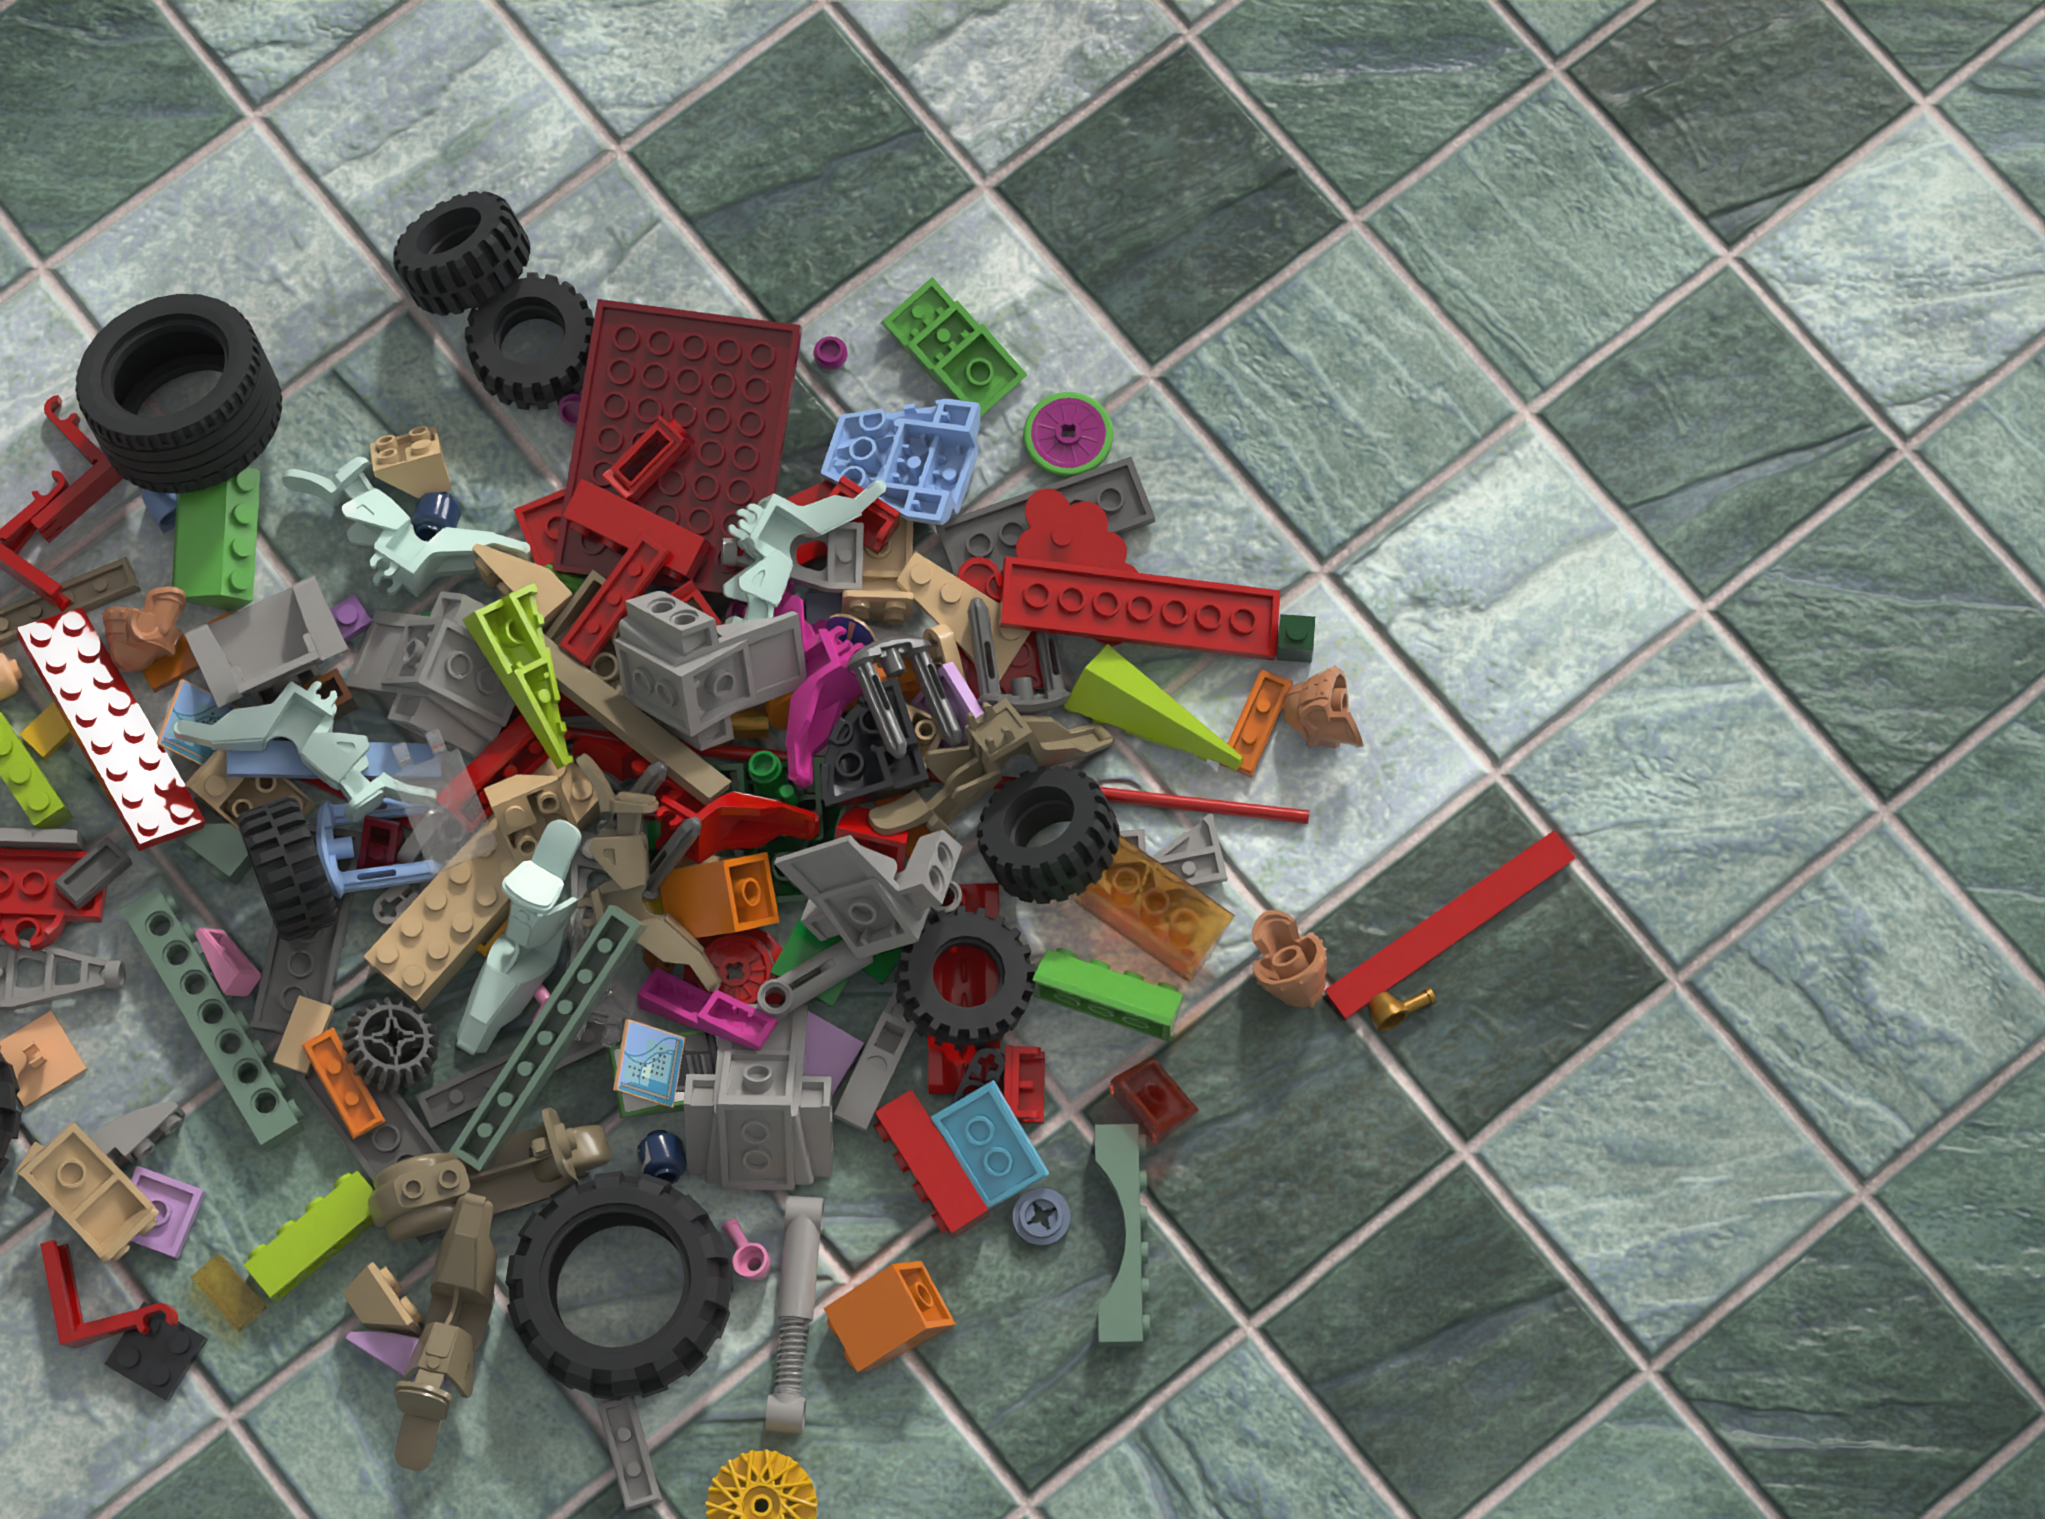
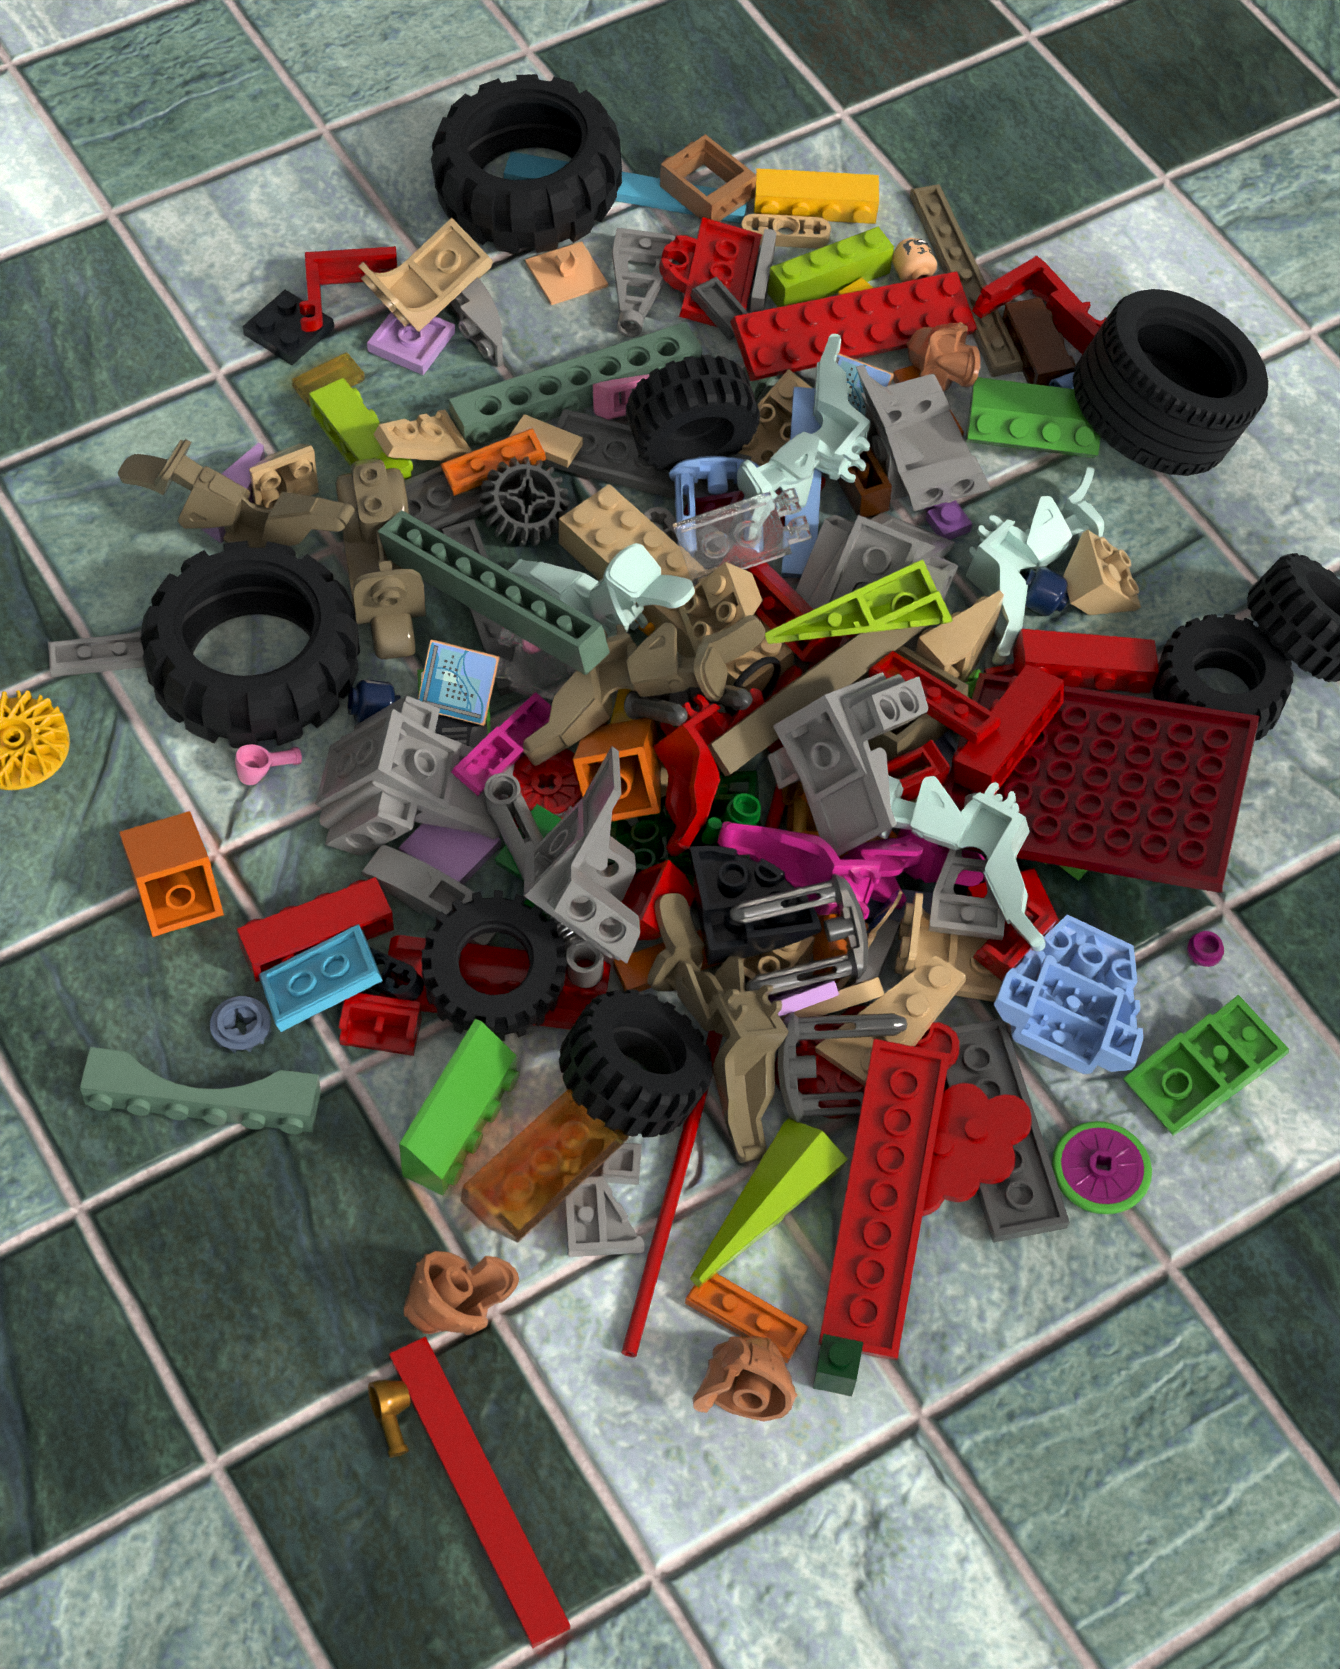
camera: 90 degrees right, 15 degrees down
(102, 540) = (1037, 341): none -> reddish brown brick
(316, 1163) = (422, 439): none -> tan wing
(523, 470) = (1089, 659): none -> red brick
(656, 467) = (1095, 765): red window -> none
(795, 1308) = (282, 812): light grey piece -> none
(1152, 1099) = (337, 1140): clear red slope -> none

